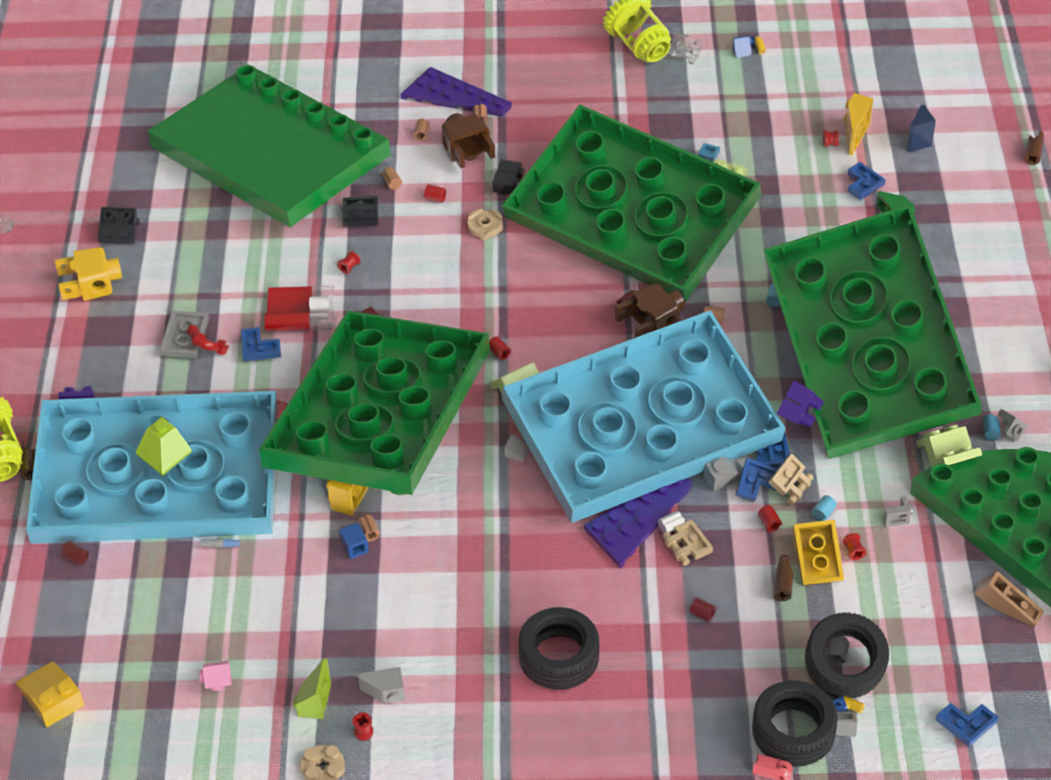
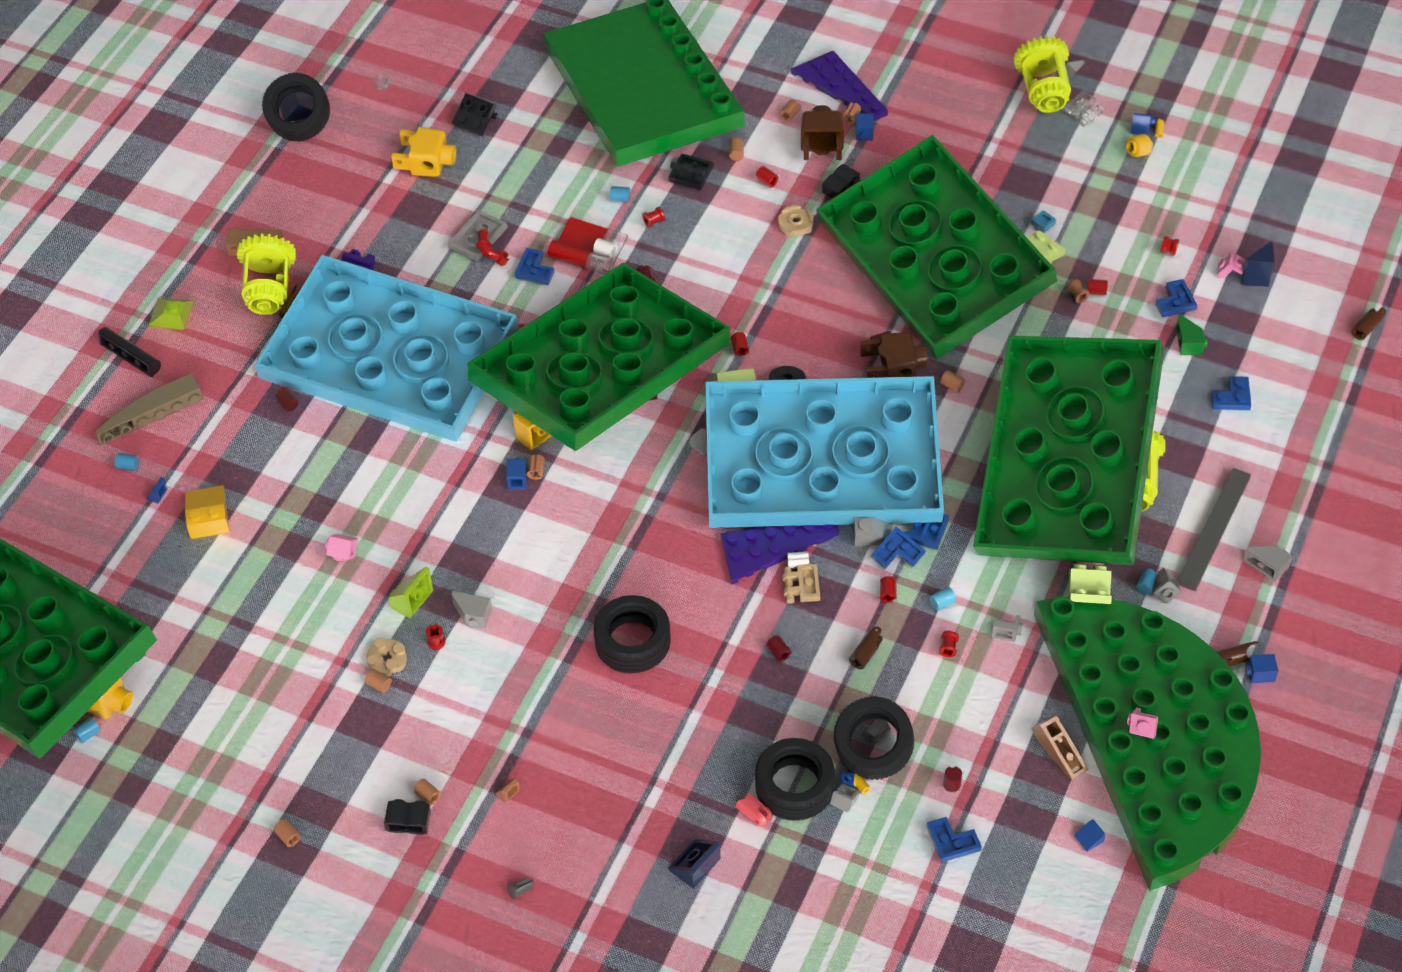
camera: 25 degrees right, 5 degrees up
(162, 446) = (396, 332): lime slope -> none
(219, 543) = (408, 434): light grey piece -> none
(304, 252) = (620, 194): none -> dark azure piece
(499, 122) = (864, 126): none -> blue brick
(559, 358) = (786, 373): none -> black dish
(650, 22) = (1073, 67): none -> light grey slope
(752, 64) = (1139, 145): none -> yellow head
(775, 201) = (1078, 291): none -> nougat bush
(785, 477) = (923, 556): tan plate -> none
(790, 192) = (1097, 287): none -> red piece
(806, 399) = (966, 494): dark purple hips -> none
(818, 552) = (911, 636): yellow slope -> none
(857, 119) = (1204, 237): yellow slope -> none
(892, 135) = (1231, 262): none -> bright pink bracket
(934, 666) = (952, 779): none -> dark red piece
(964, 244) = (1235, 398): none -> blue plate
(1018, 363) = (1214, 529): none -> dark grey tile

